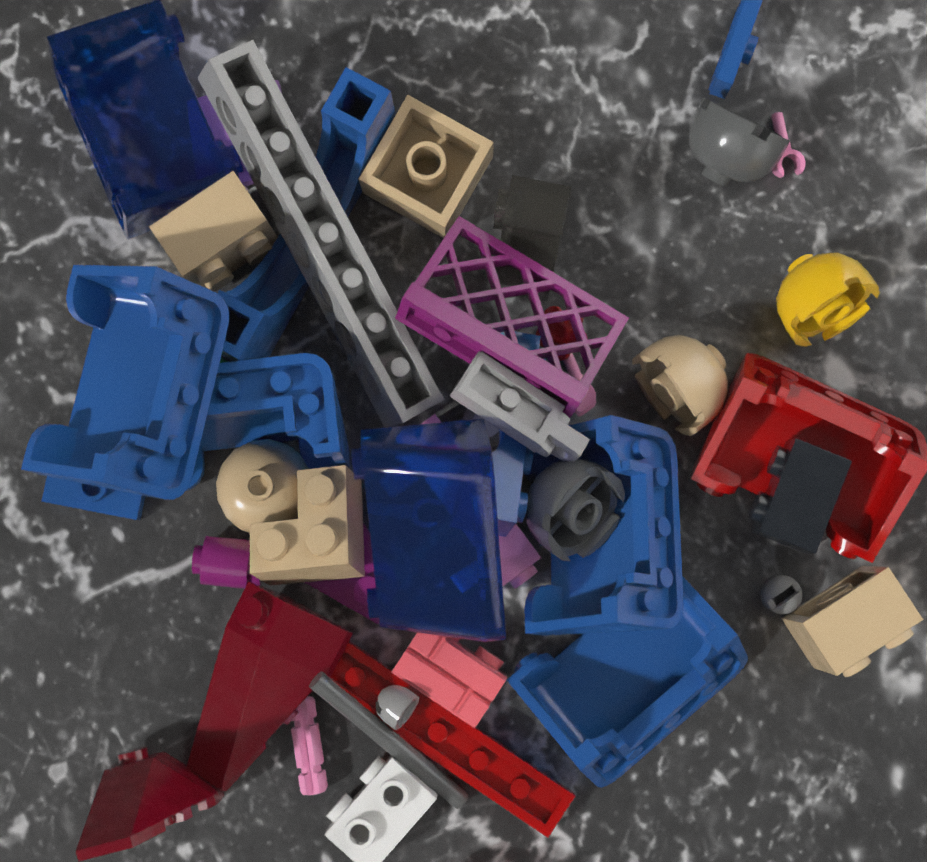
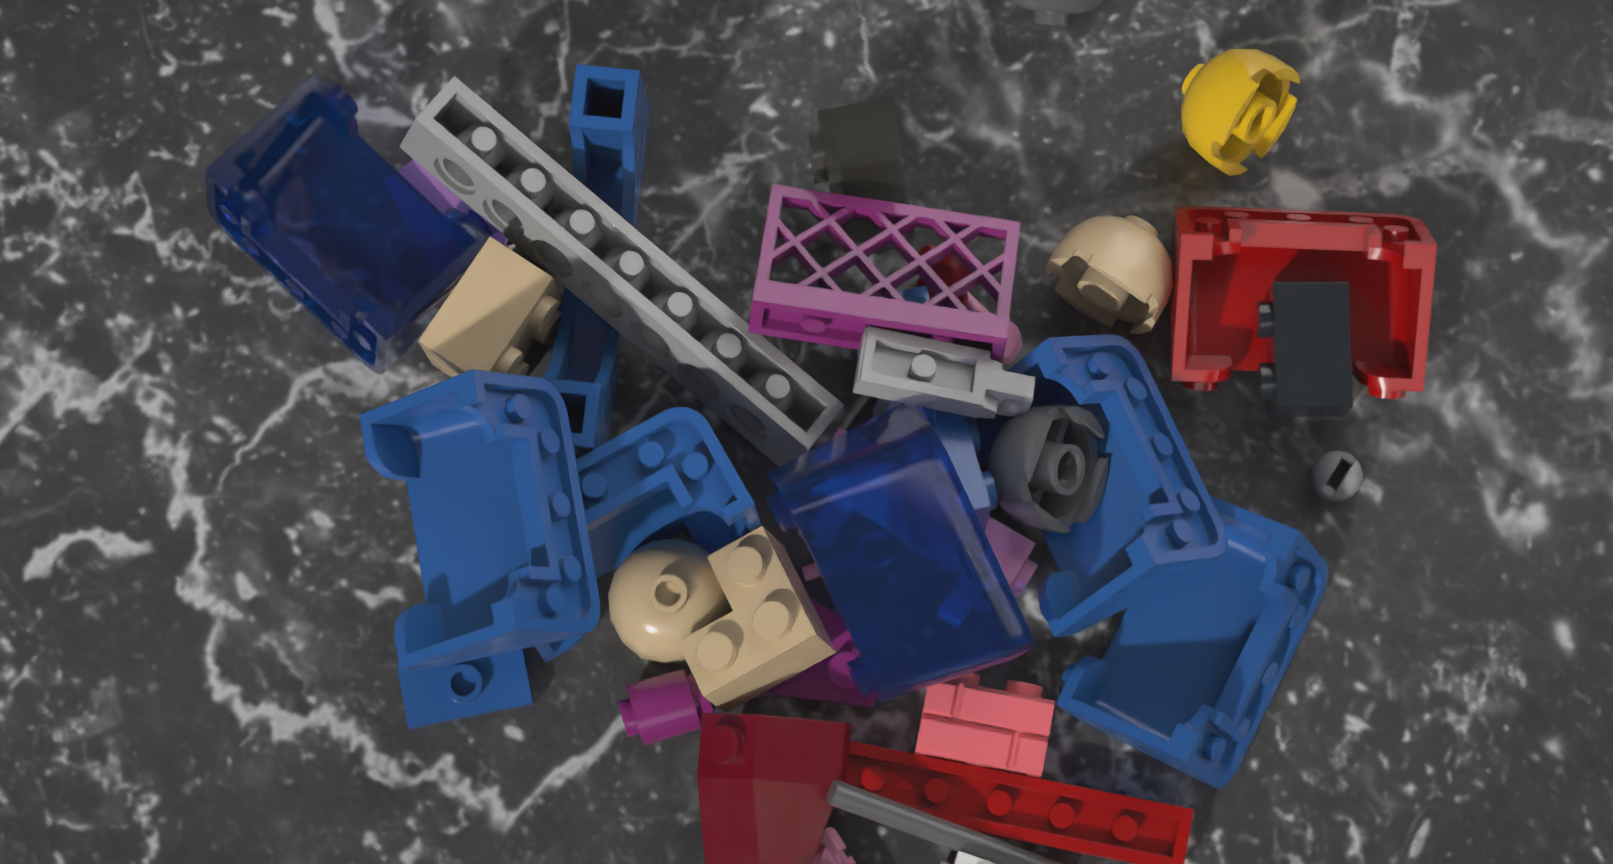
camera: 25 degrees left, 5 degrees down
(396, 705) = (938, 786): light grey hinge -> none
(426, 166) = (707, 144): tan brick -> none
(853, 620) = (1425, 466): tan brick -> none

